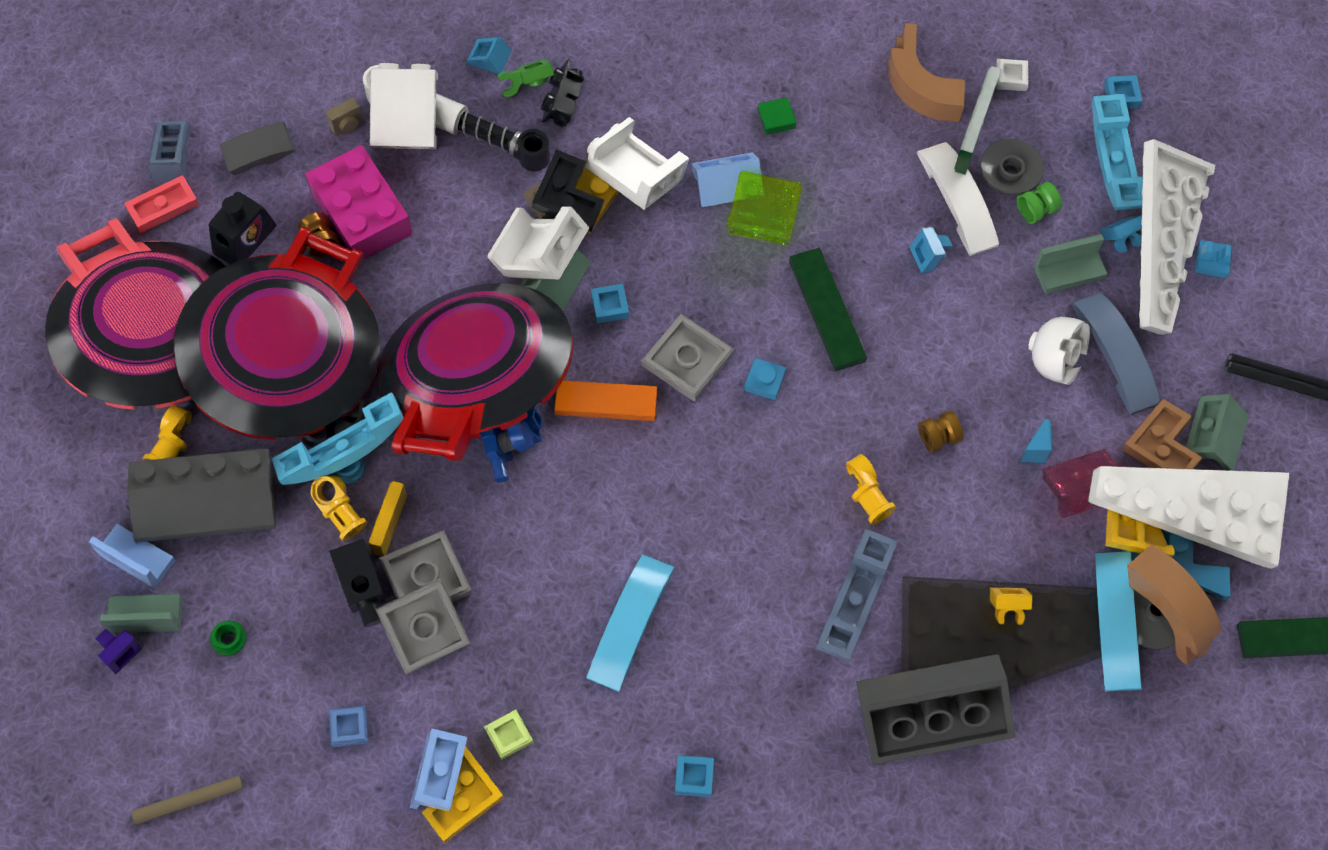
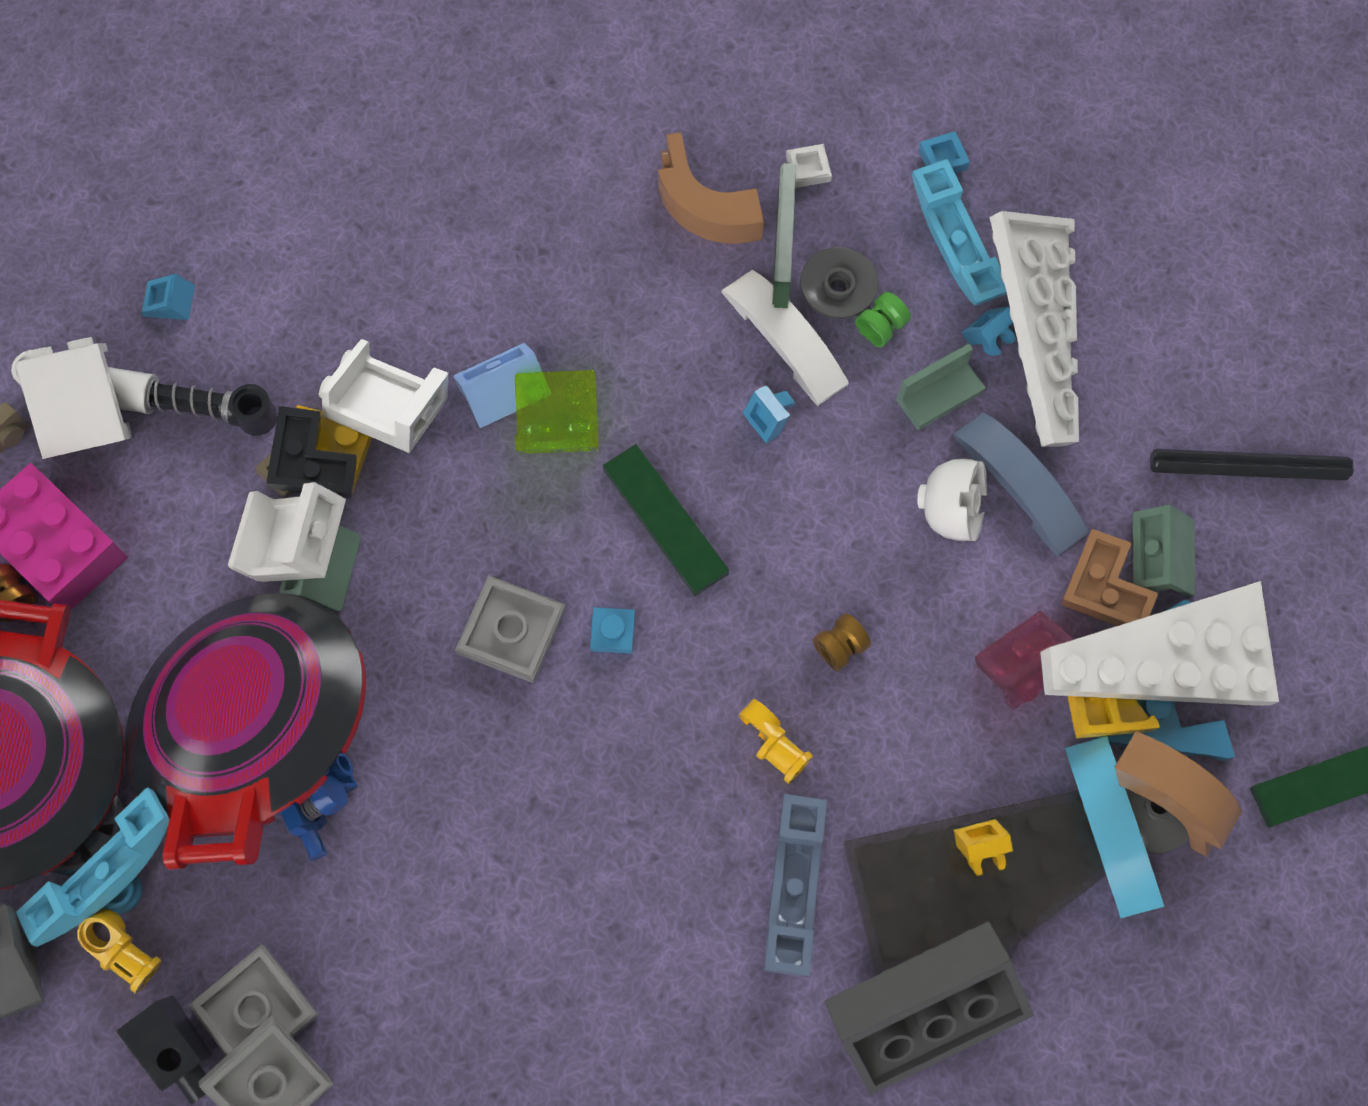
camera: 15 degrees left, 5 degrees up
(387, 518) = (186, 949): yellow tile -> none
(532, 74) = (226, 310): bright green plate -> none
(556, 104) = (272, 312): black hinge -> none
(606, 400) = (424, 712): orange tile -> none
(609, 303) = (397, 584): dark azure plate -> none
(629, 622) = (526, 996): medium azure slope -> none
(776, 116) = (541, 288): green tile -> none
(1040, 445) = (964, 626): dark azure slope -> none
(1213, 258) = (1102, 335): dark azure tile -> none

